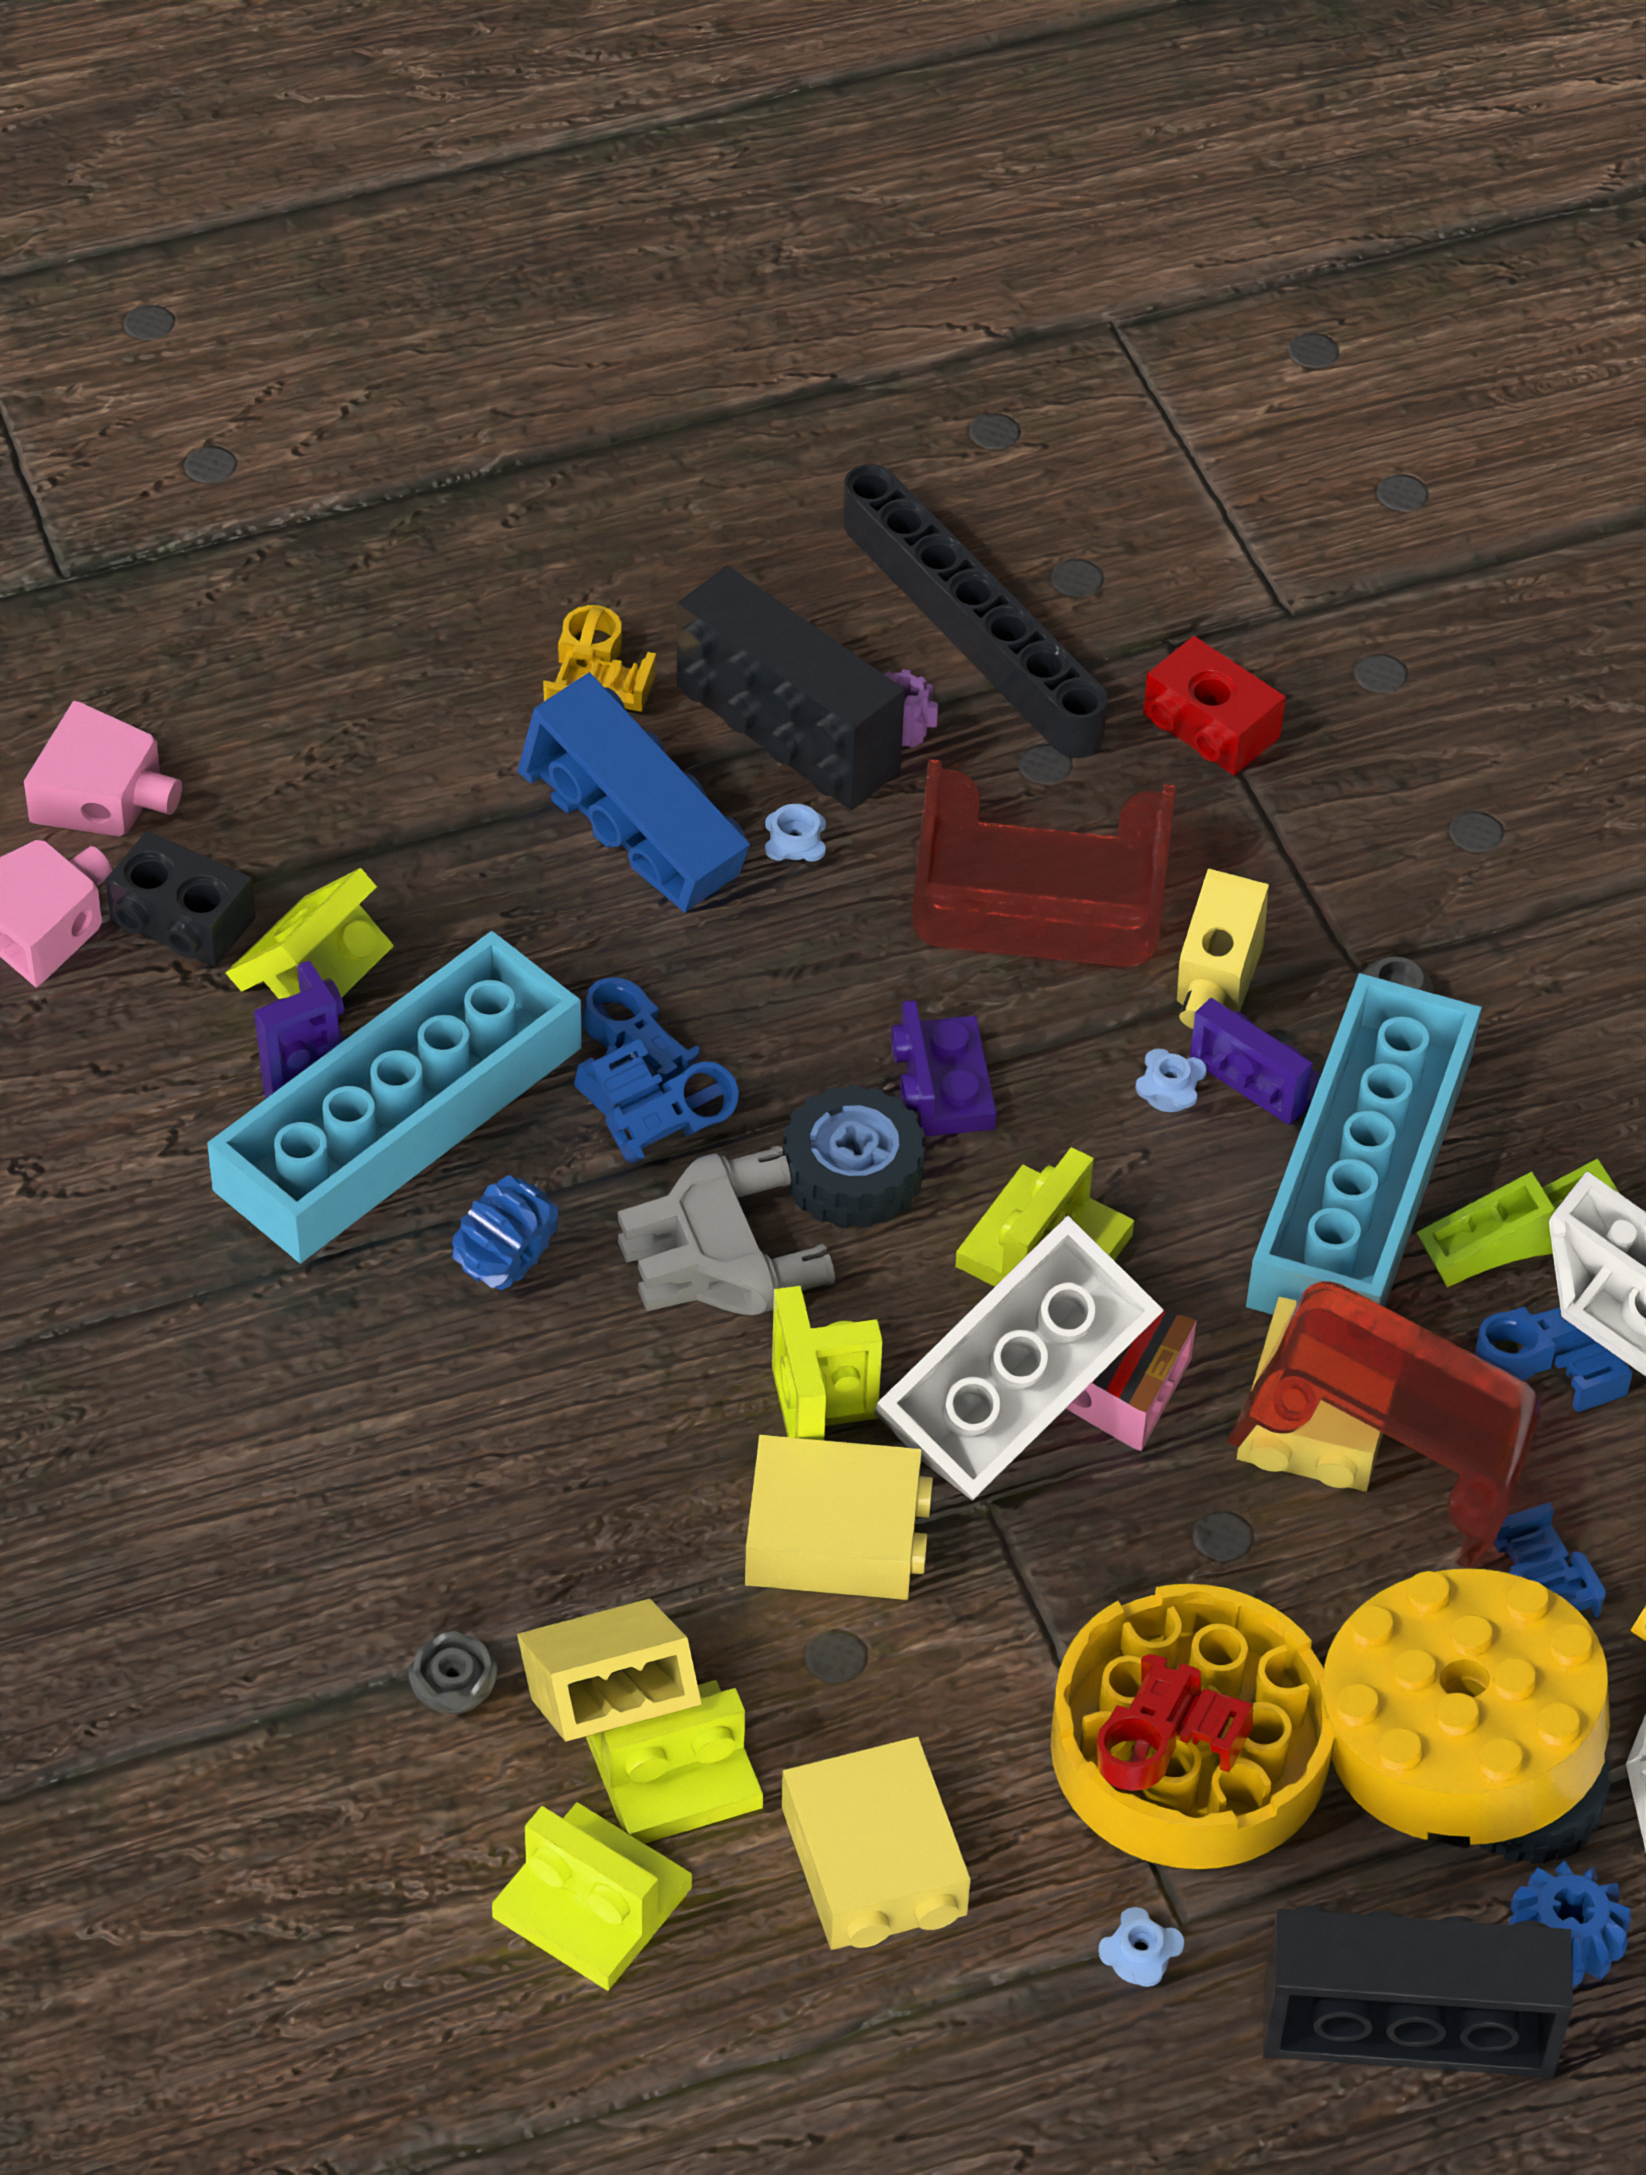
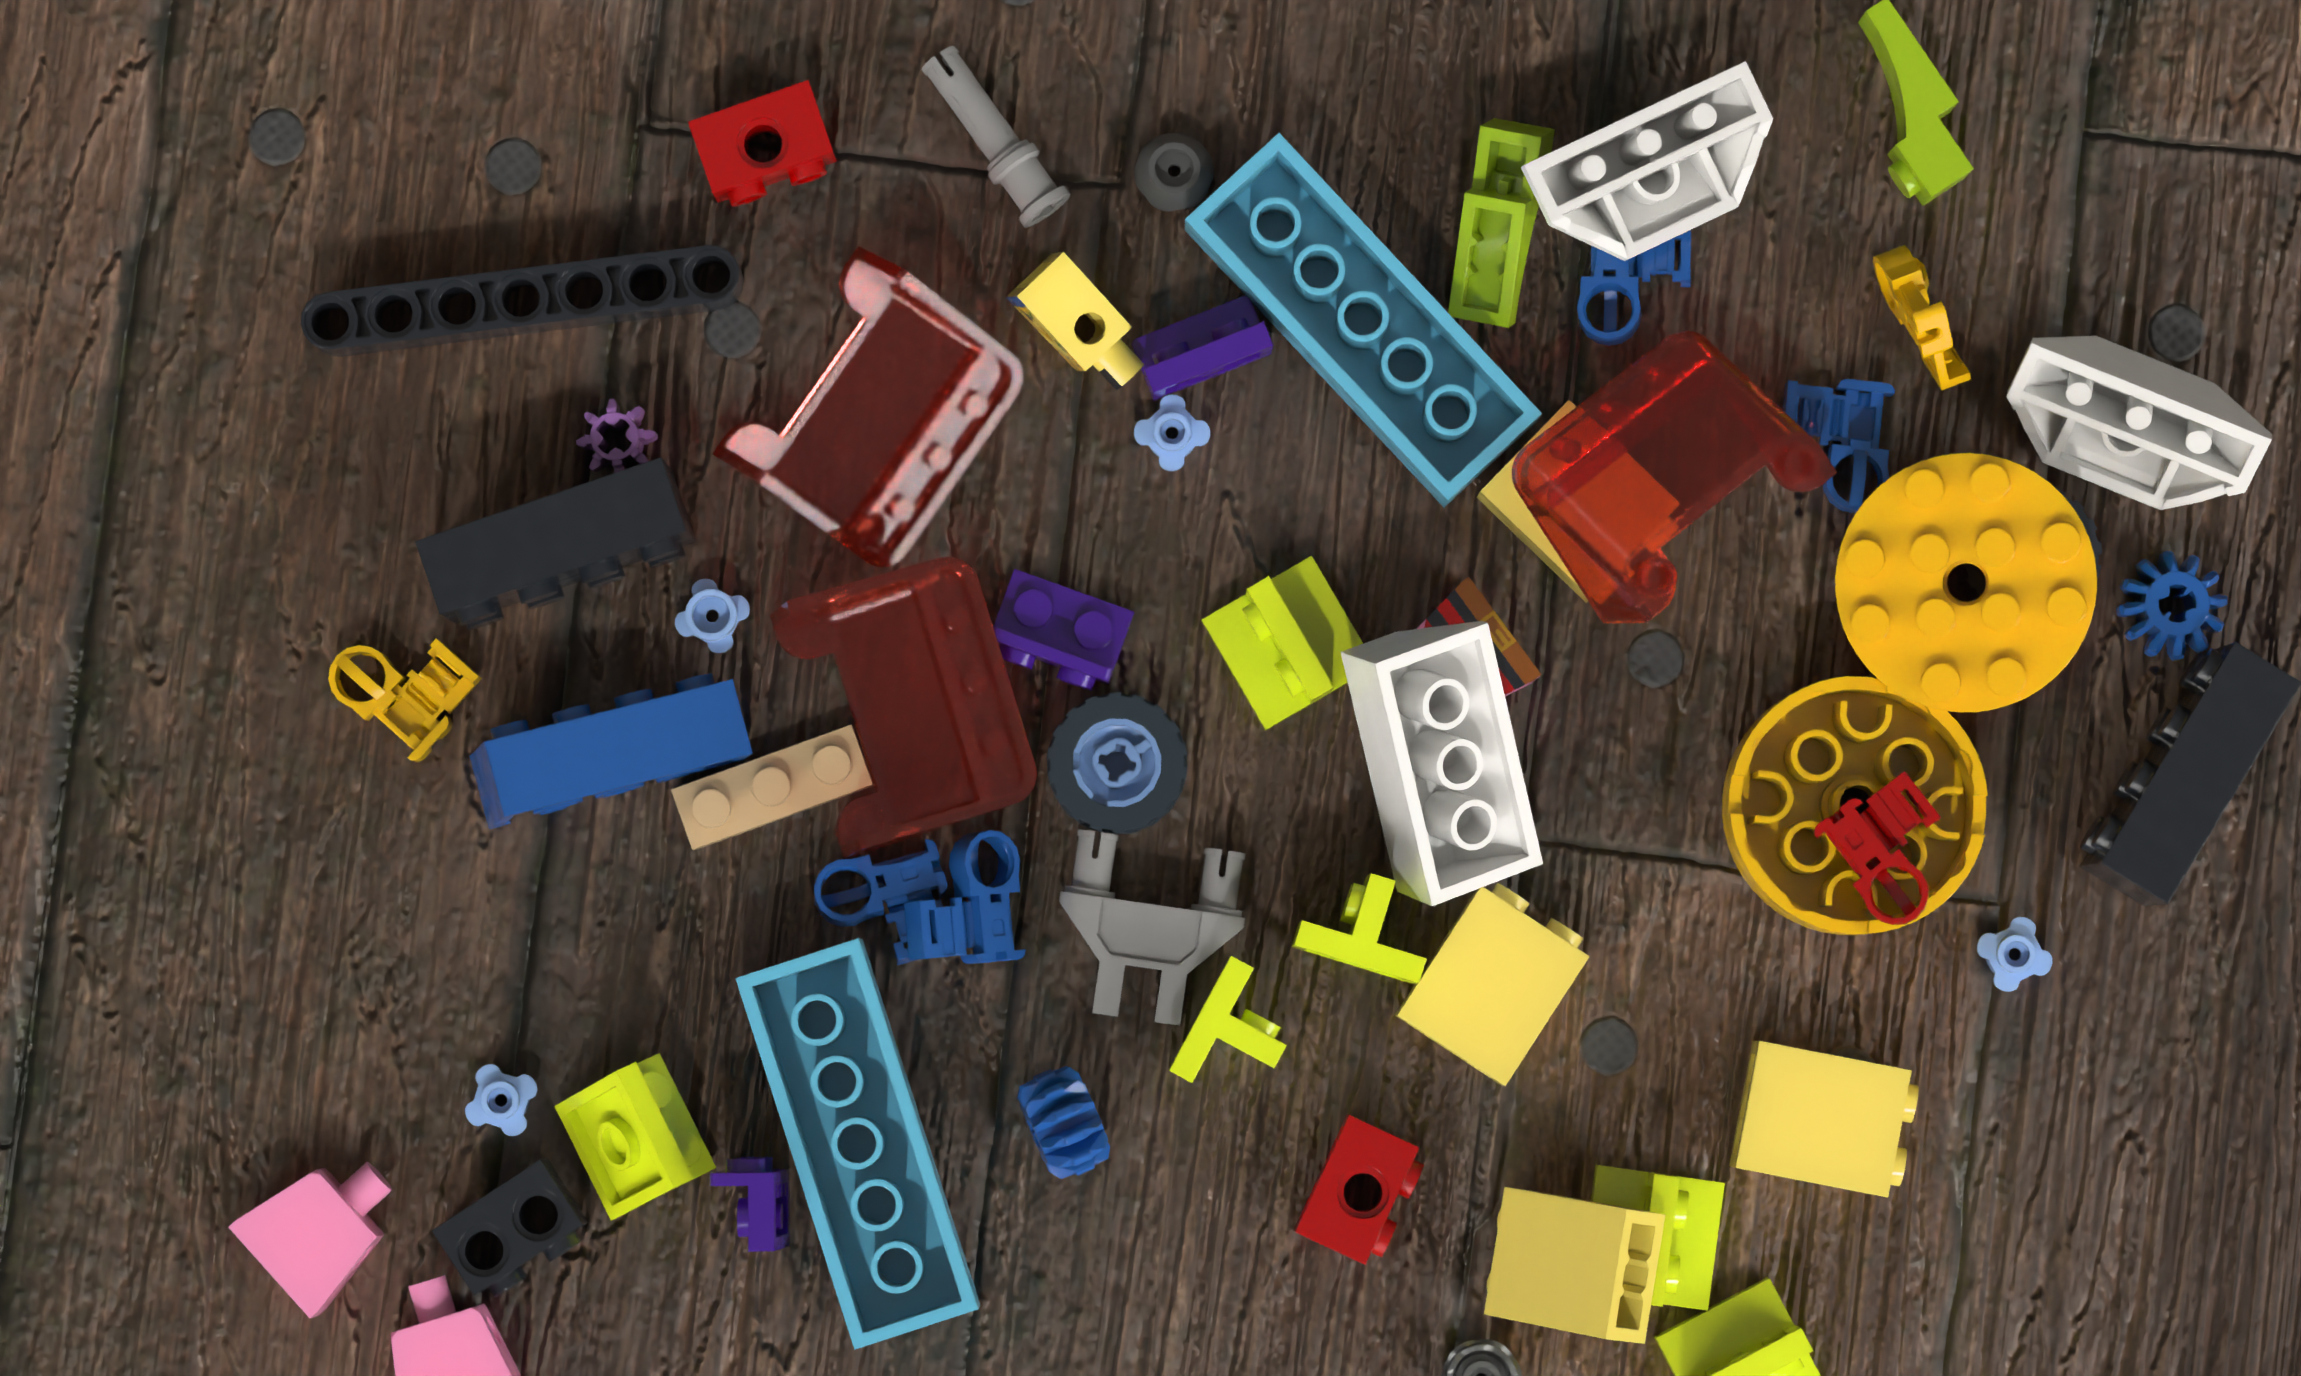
camera: 60 degrees left, 35 degrees up
(288, 858) = (518, 1093): none -> light blue plate
(552, 1470) = (1355, 1151): none -> red brick
(667, 1301) = (1249, 1034): none -> neon yellow bracket
(675, 935) = (772, 787): none -> tan plate
(860, 963) = (922, 698): none -> clear red windscreen
(1322, 872) = (1011, 160): none -> light grey pin

